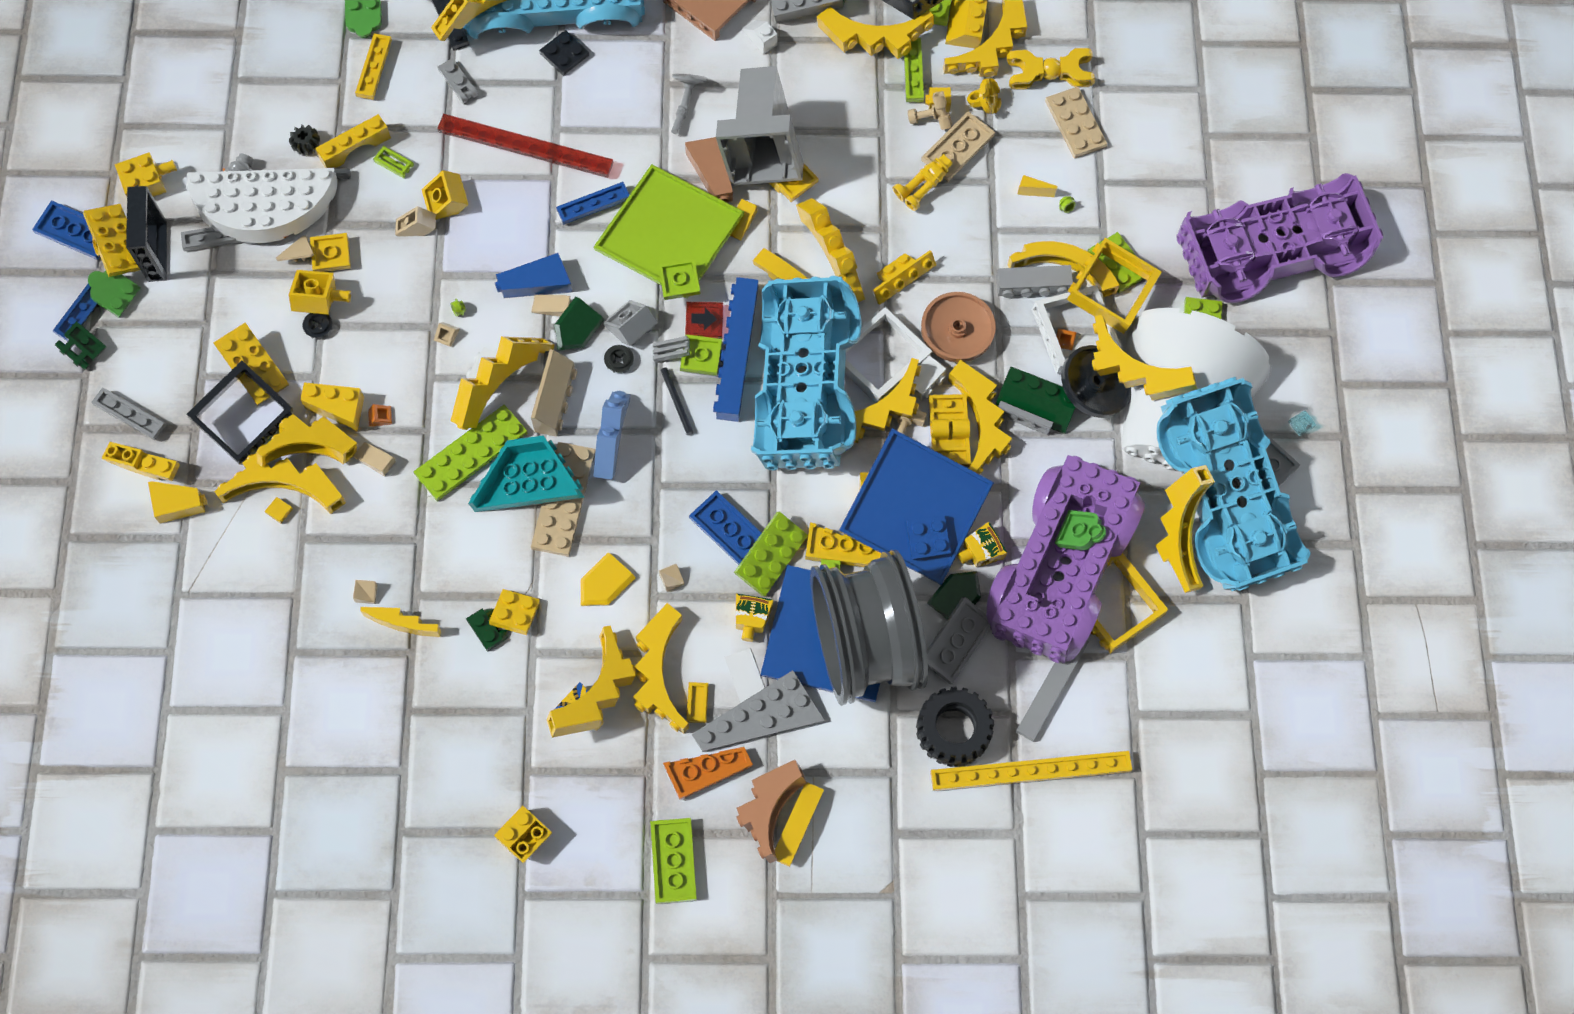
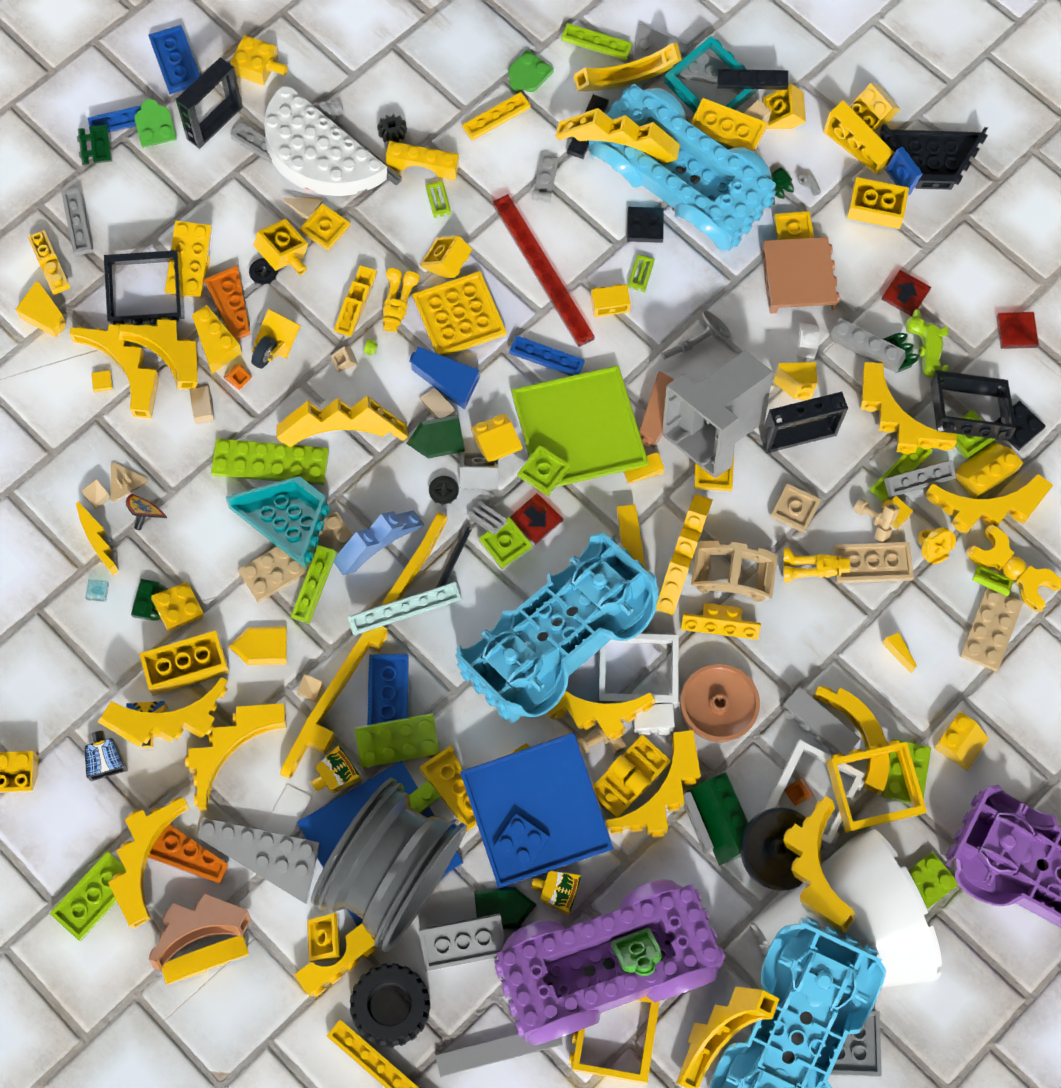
camera: 45 degrees right, 0 degrees up
(109, 236) = (189, 71): yellow plate -> none
(309, 365) = (228, 297): none -> orange wing
(375, 565) = (124, 481): none -> tan piece
(380, 362) = (274, 339): none -> yellow plate
(411, 285) = (355, 301): none -> yellow slope
(414, 570) = (141, 509): none -> shield
(415, 223) = (405, 258): tan slope -> none
(442, 656) = (97, 590): none -> clear light blue plate
(446, 265) = (394, 309): none -> yellow piece
(498, 228) = (459, 314): none -> yellow plate
(553, 394) = (367, 472): tan slope -> none
(564, 643) = (184, 663): none -> yellow brick
(576, 763) = (103, 758): none -> torso
(597, 125) = (610, 300): none -> yellow brick
(599, 505) = (313, 584): none -> lime plate
(603, 100) = (637, 285): none -> lime tile
(620, 288) = (496, 438): none -> yellow slope
(681, 461) = (404, 608): none -> light aqua tile
(695, 827) = (145, 829): none -> yellow arch
(697, 702) = (232, 798): yellow tile -> none
(710, 604) = (318, 736): none -> yellow piece
(737, 349) = (535, 563): blue brick -> none
(789, 64) = (797, 379): none -> yellow slope
(822, 85) = (832, 405): none -> black window
(863, 729) = (324, 938): none -> yellow slope
(871, 155) = (795, 508): none -> tan plate
(889, 711) = (315, 977): none -> yellow arch
(898, 217) = (737, 551): none -> tan window
(932, 62) = (920, 478): none -> light grey plate
(1045, 89) = (992, 580): none -> lime tile
(1067, 204) = (913, 687): lime plate -> none
(1131, 209) = (962, 741): none -> yellow slope
(1302, 423) = (921, 1044): clear light blue tile -> none

